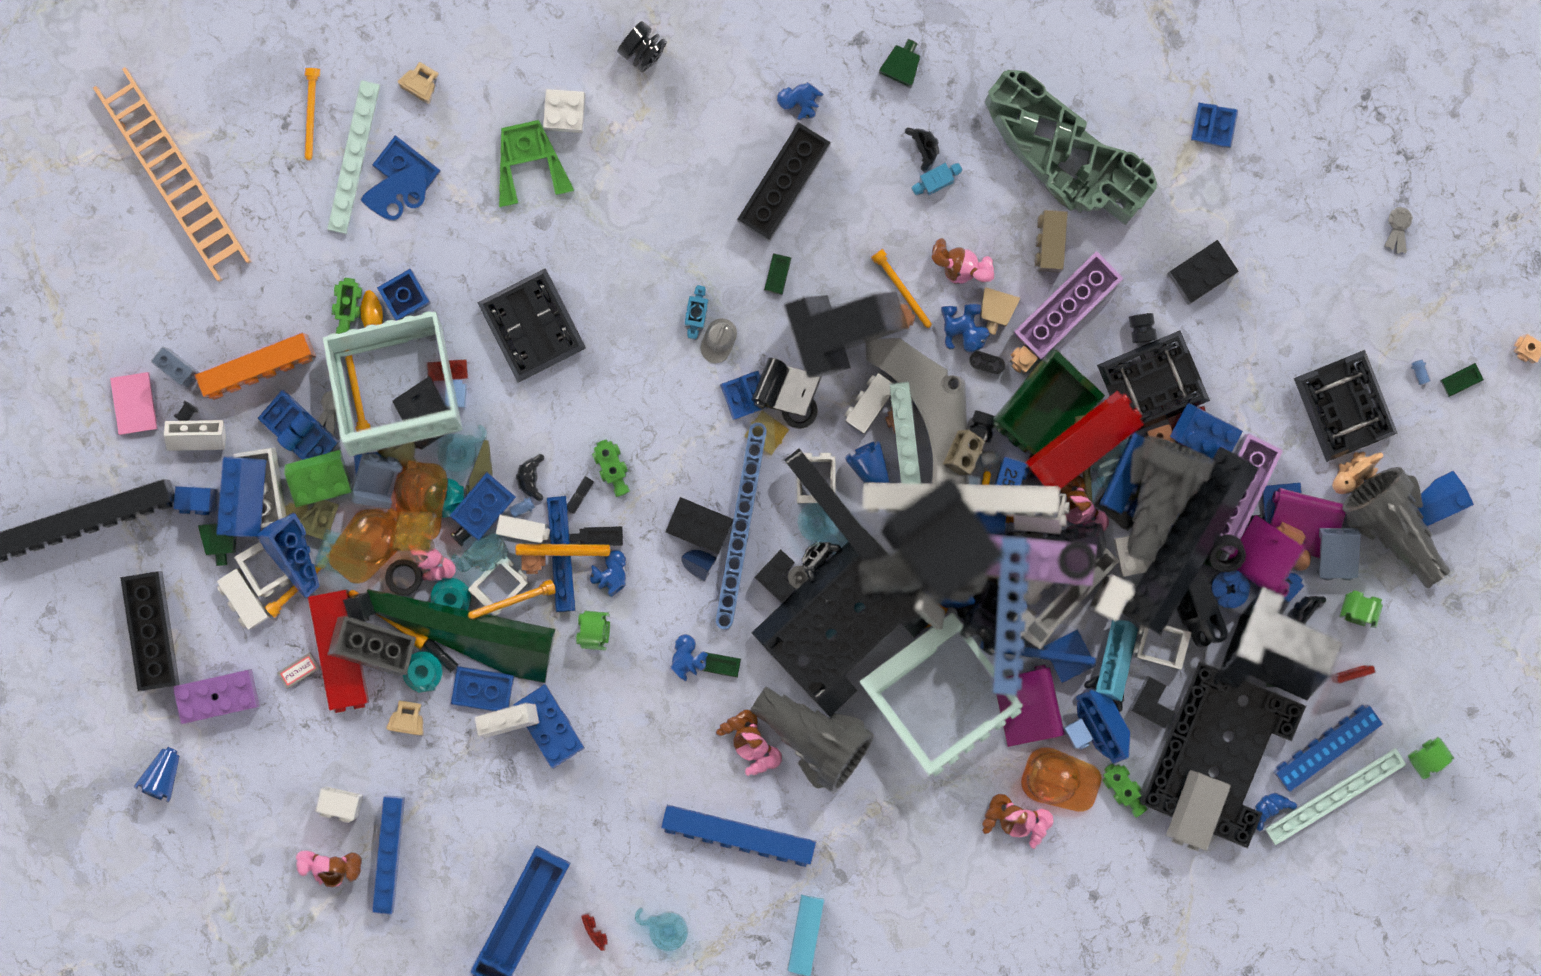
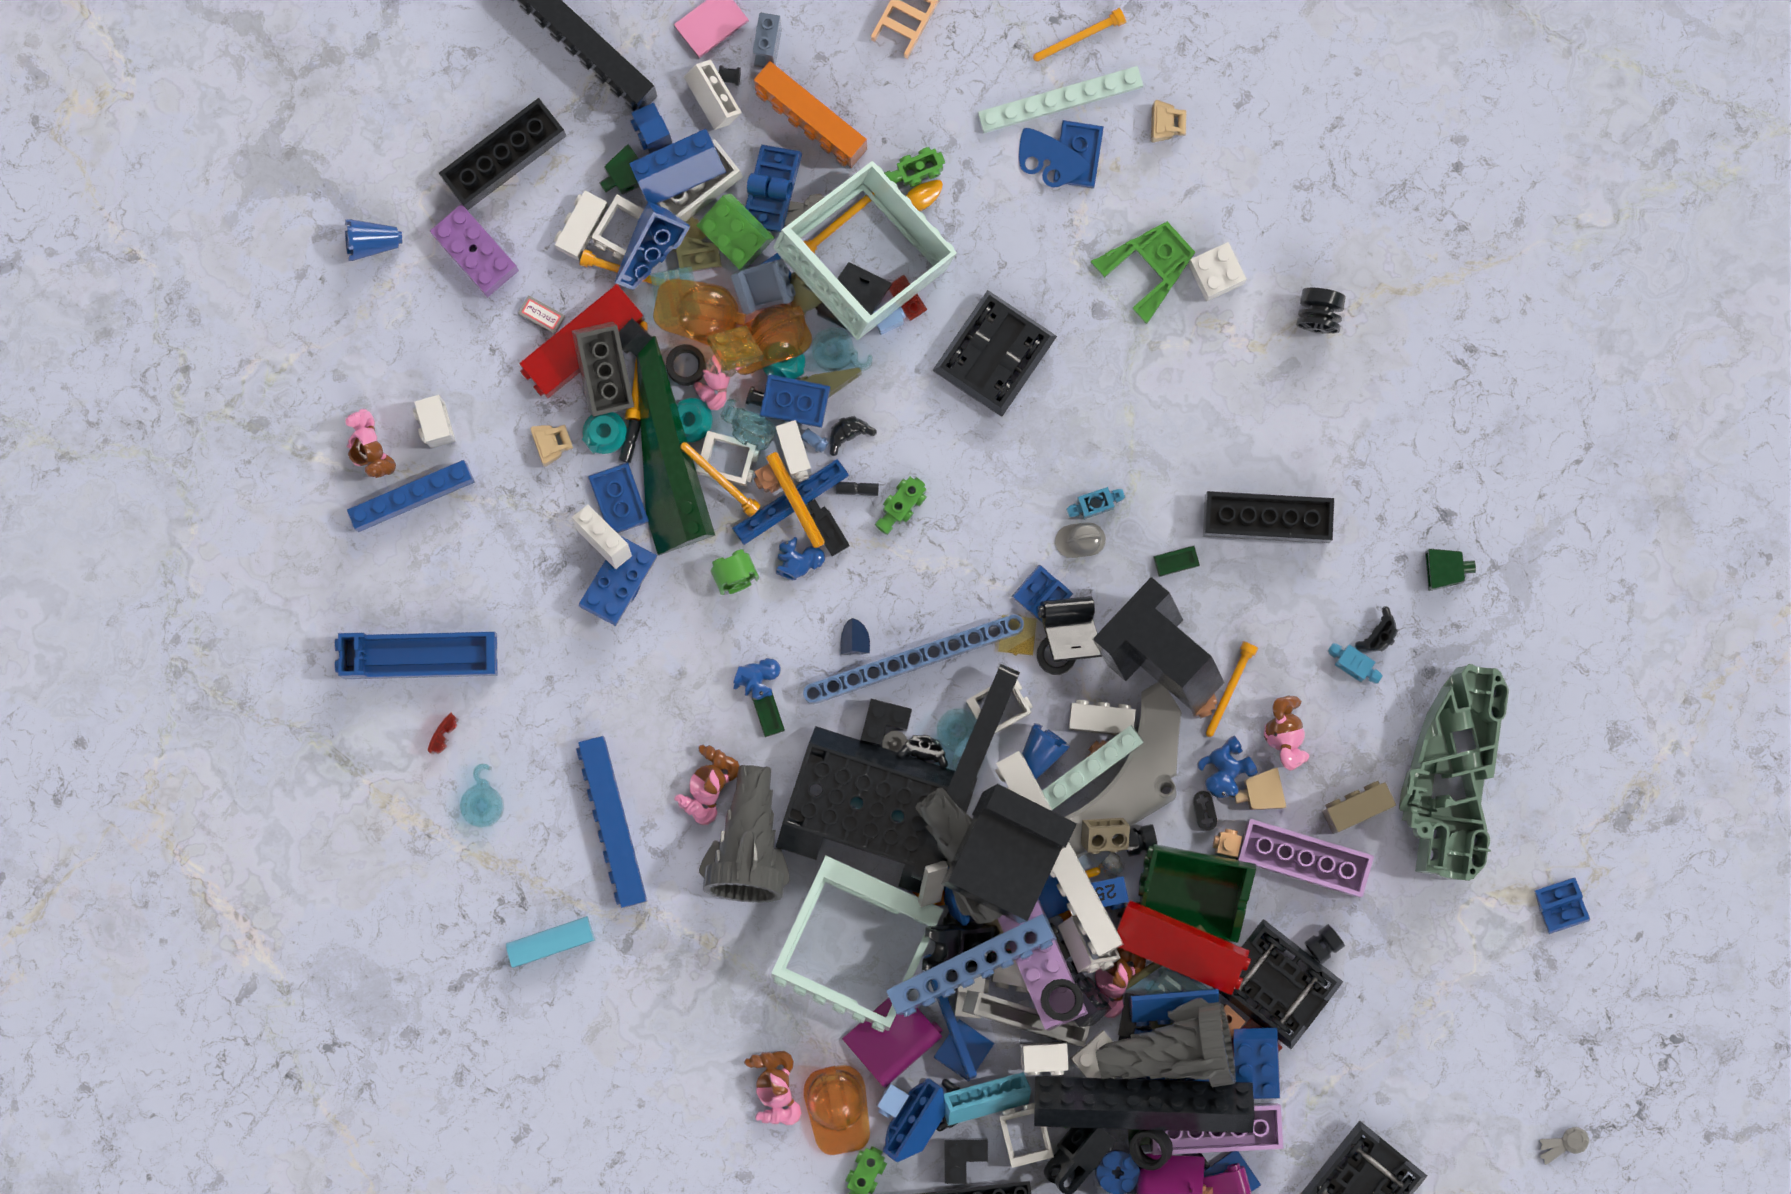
camera: 60 degrees right, 5 degrees down
(404, 295) = (956, 216): blue brick -> none
(699, 525) = (891, 618): black brick -> none
(803, 95) = (1362, 490): blue animal -> none
(1203, 272) = (1412, 973): black brick -> none

